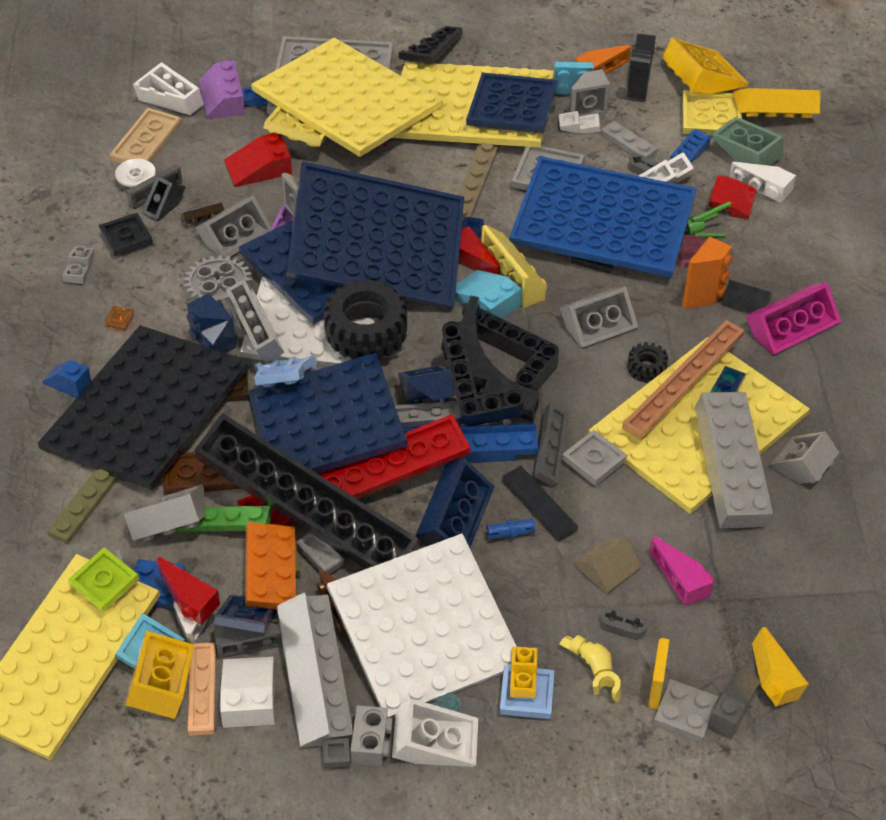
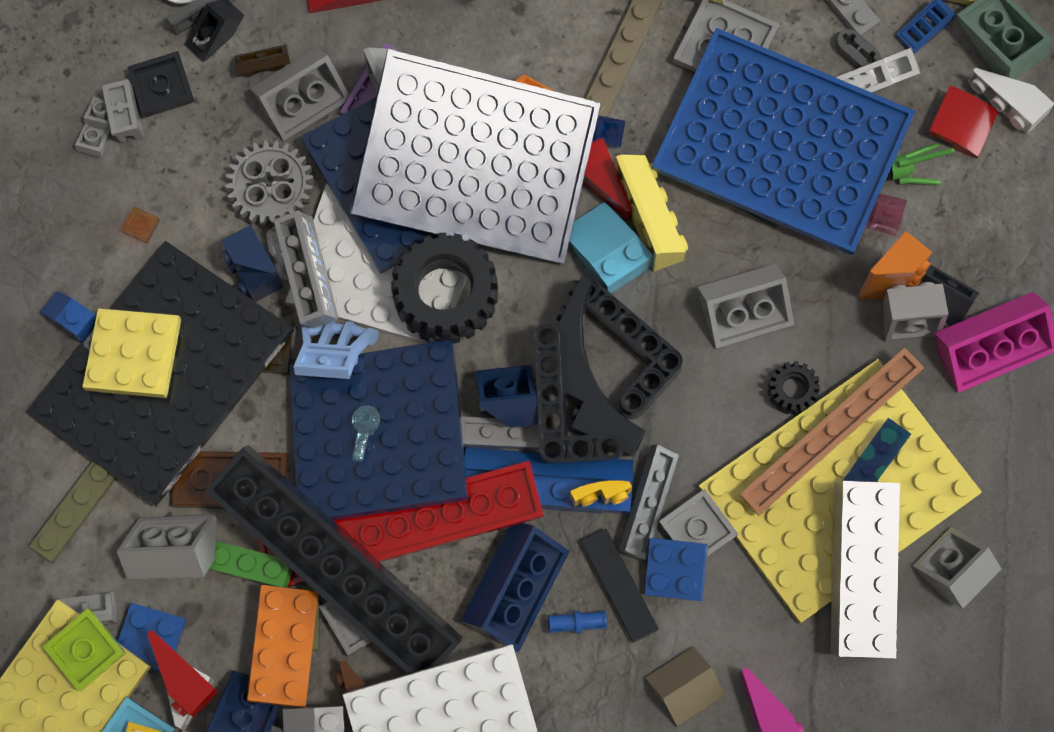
camera: 10 degrees right, 25 degrees up
(98, 249) = (123, 110): none -> light grey hinge
(121, 390) = (132, 353): none -> light yellow plate
(318, 407) = (366, 421): none -> clear light blue plate
(518, 429) = (609, 490): none -> yellow slope
(583, 482) = (676, 569): none -> blue plate
(727, 300) = (914, 311): none -> light grey slope

